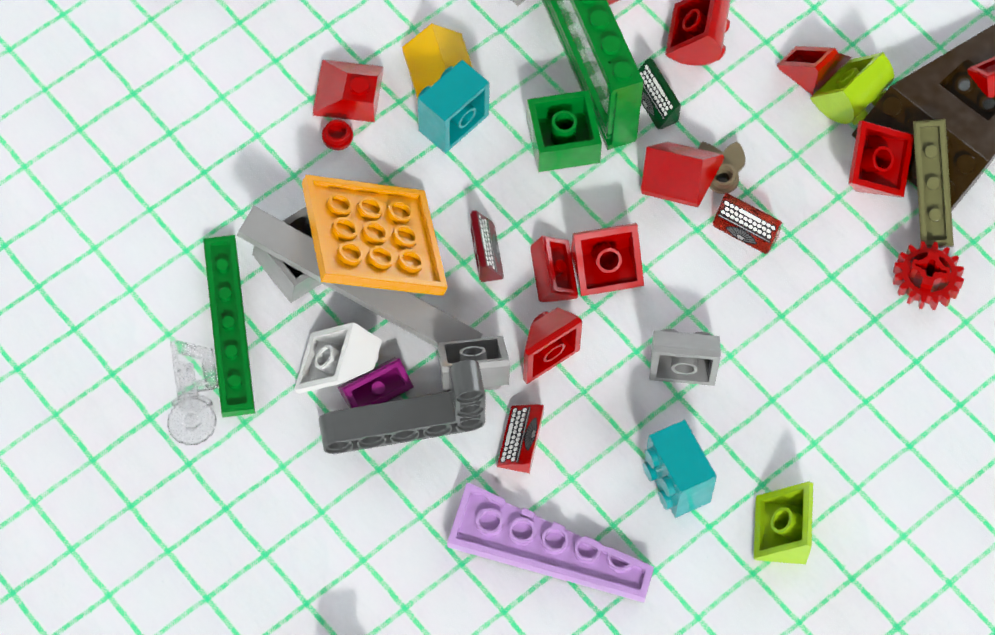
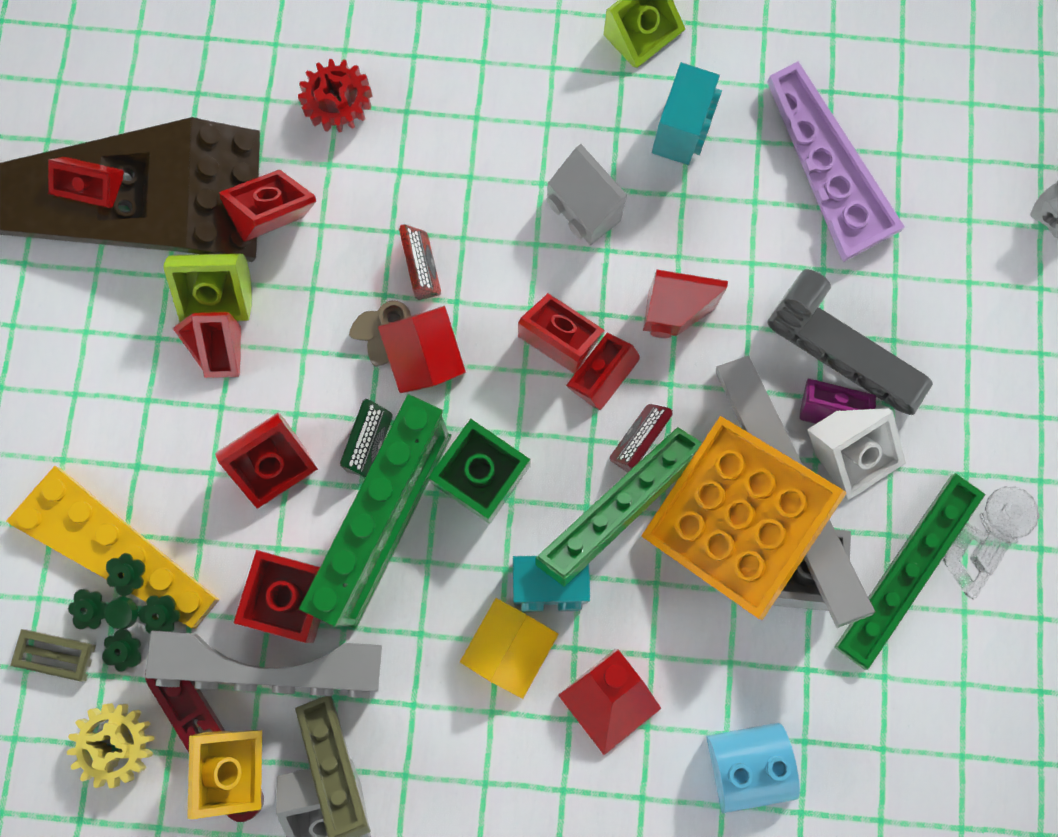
camera: 135 degrees left, 15 degrees up
(226, 124) = (753, 767): none -> medium azure brick
(337, 135) = (662, 662): red plate -> none
(455, 177) = (617, 508): none -> green tile
(488, 352) = (761, 333): light grey slope -> none
(521, 437) = (766, 259): slope -> none
(933, 183) = (248, 149): olive tile -> none

